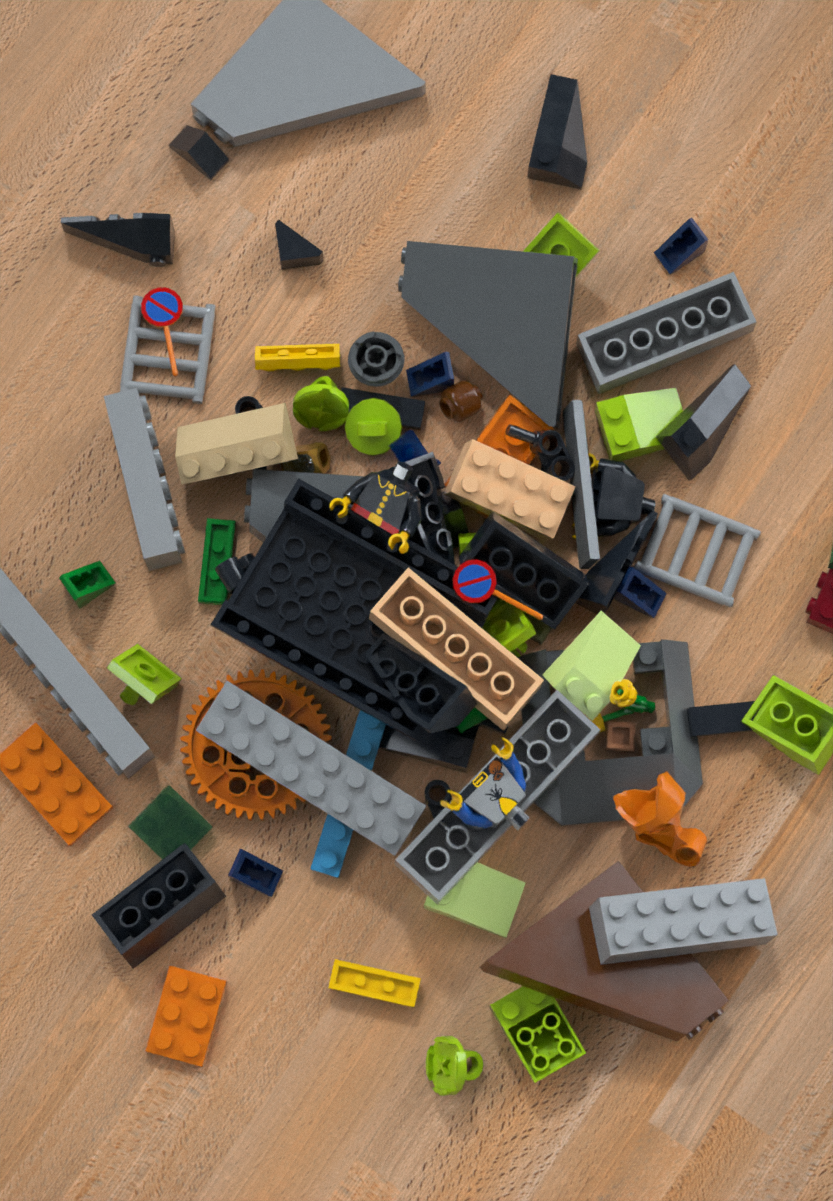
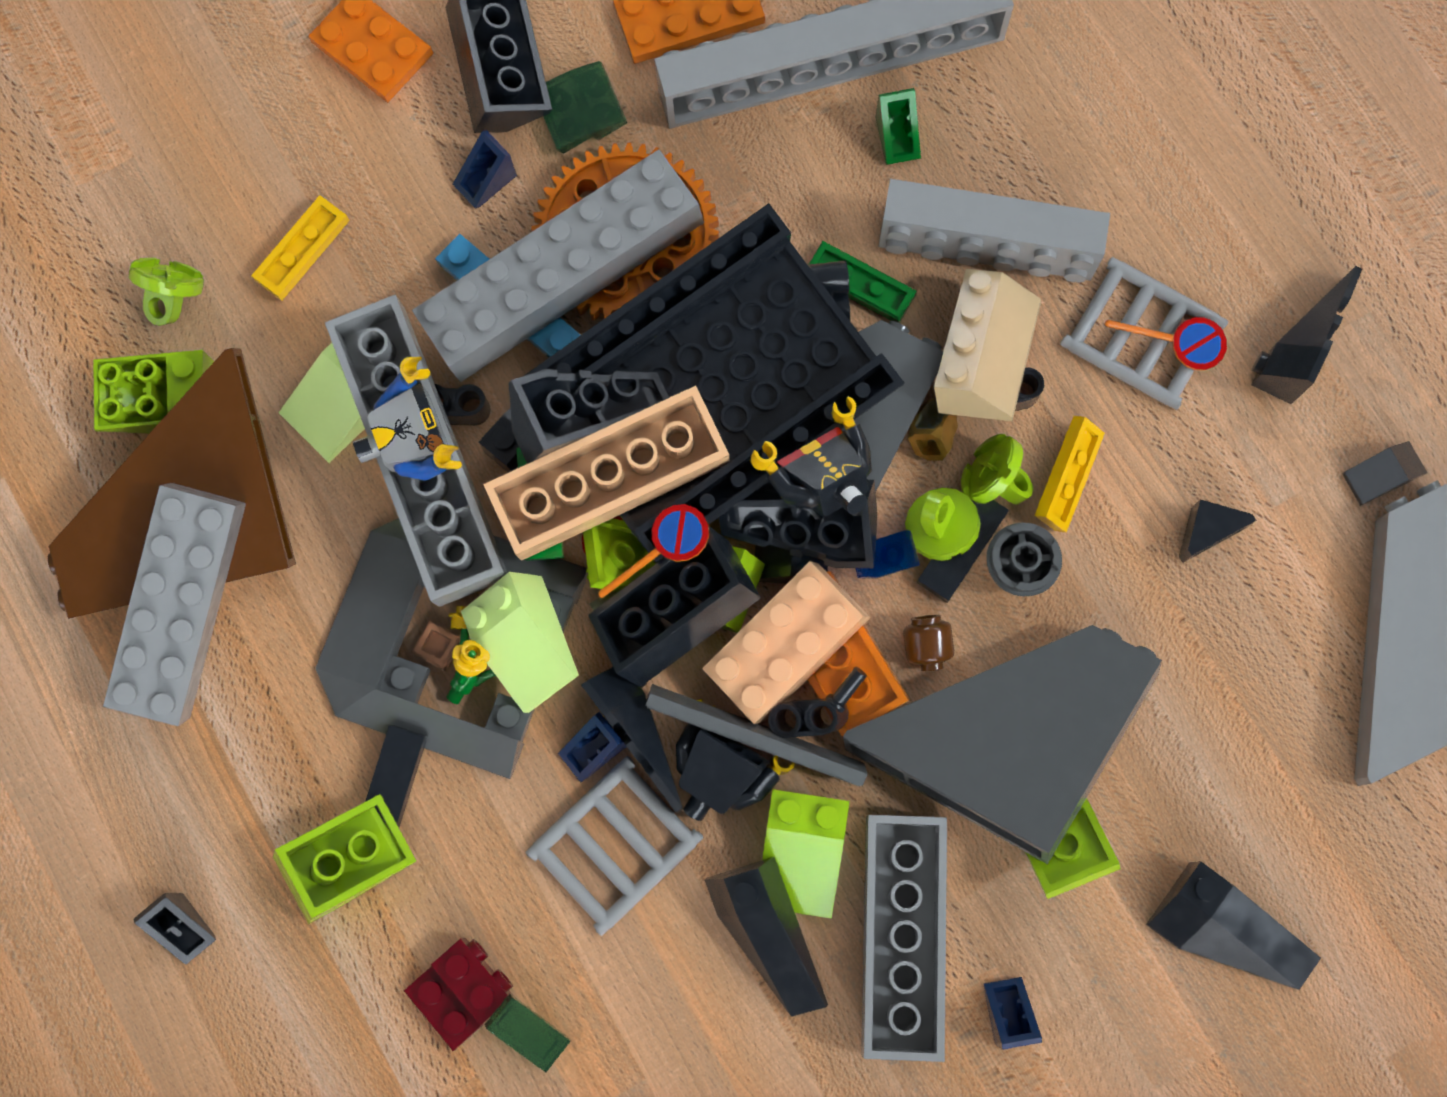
camera: 120 degrees right, 0 degrees up
(142, 675) = (761, 141): lime tile -> none
(431, 376) = (976, 622): dark blue slope -> none
(656, 820) = (317, 635): orange piece -> none

